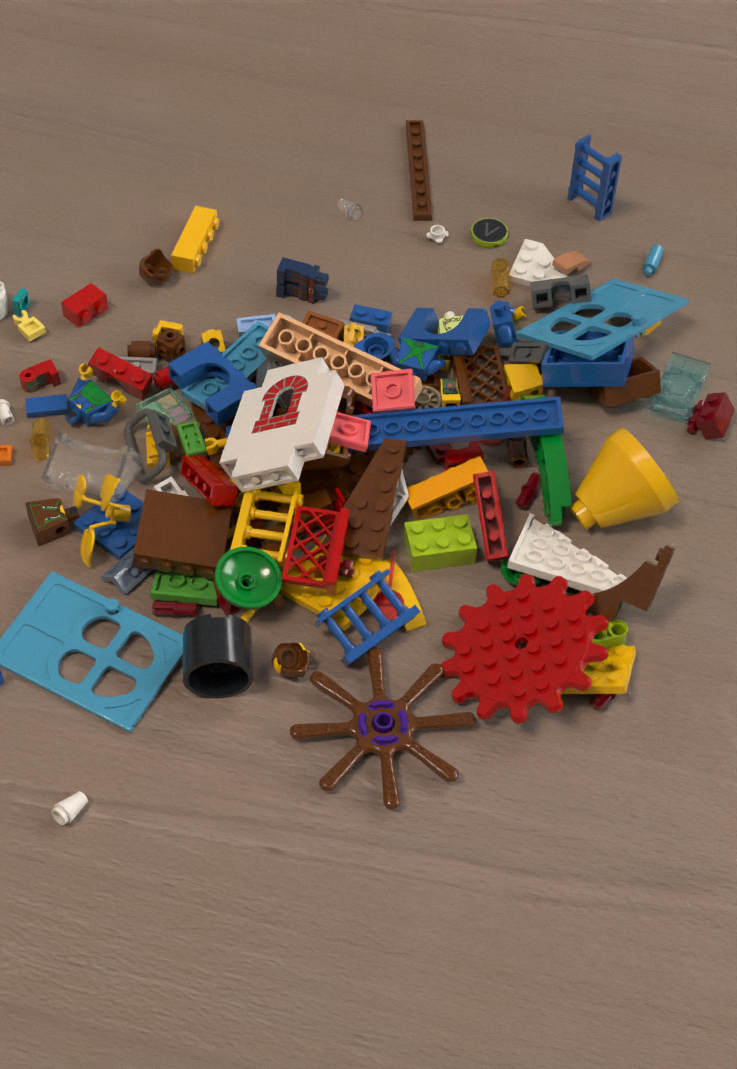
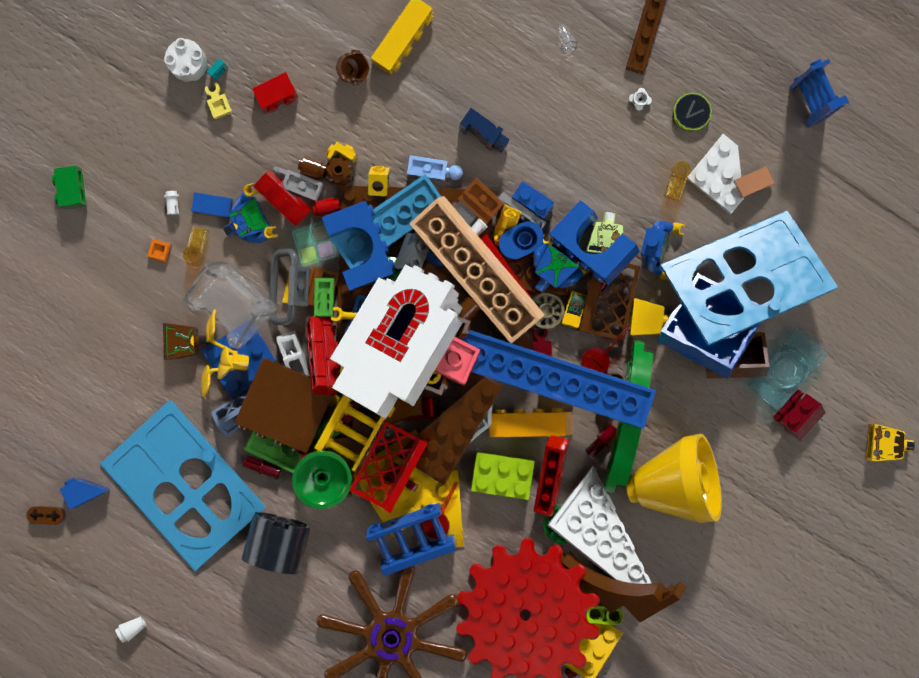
camera: 25 degrees right, 35 degrees up
(39, 376) = (214, 168): red leg -> none
(291, 659) = (338, 554): reddish brown hair -> none
(393, 391) = (511, 323): coral tile -> none
(525, 352) = (659, 292): dark grey hinge -> none
(572, 288) = (739, 221): dark grey arch -> none
(652, 260) = (835, 201): dark azure cylinder -> none

